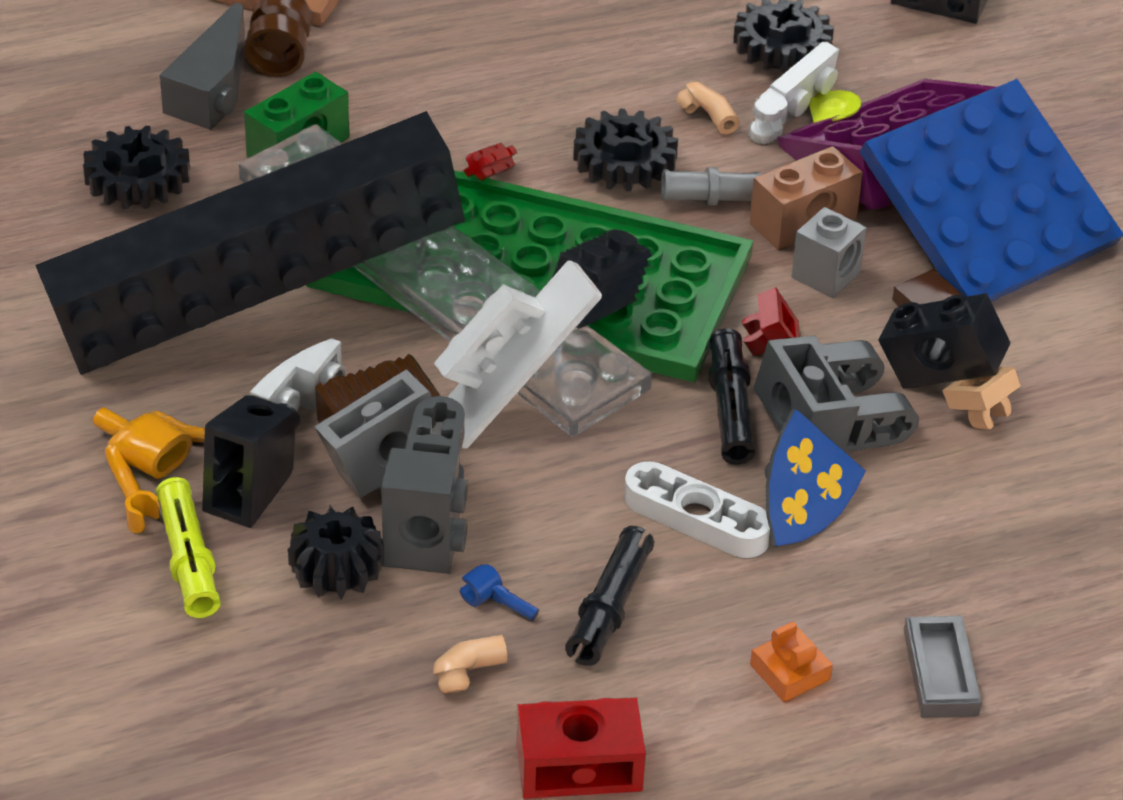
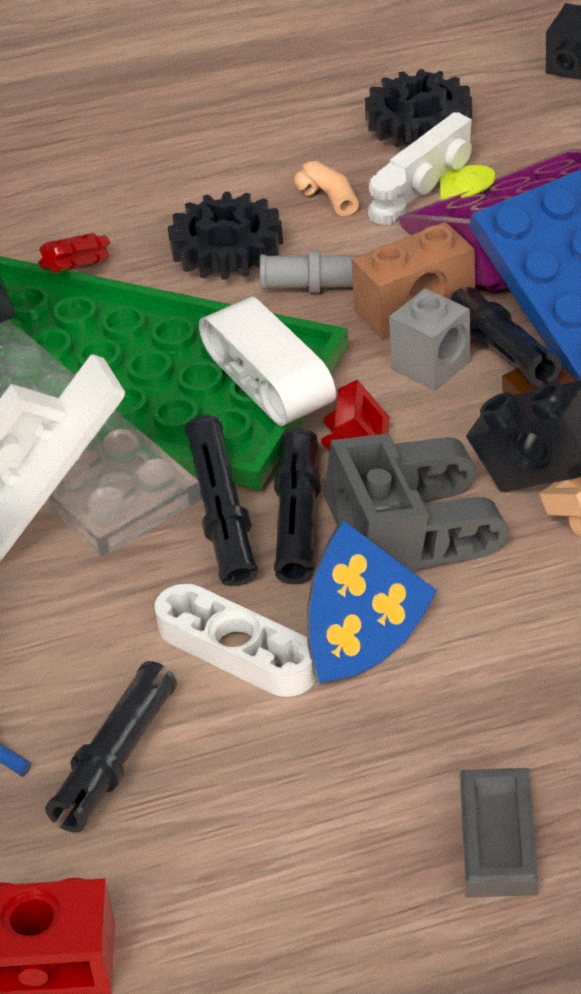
camera: 10 degrees right, 0 degrees up
(615, 268) = (157, 370): black brick -> none
(684, 437) = (225, 519): none -> black pin
(695, 268) = (267, 360): none -> white beam
(790, 662) = (314, 828): orange tile -> none
(899, 256) = (493, 328): none -> black pin

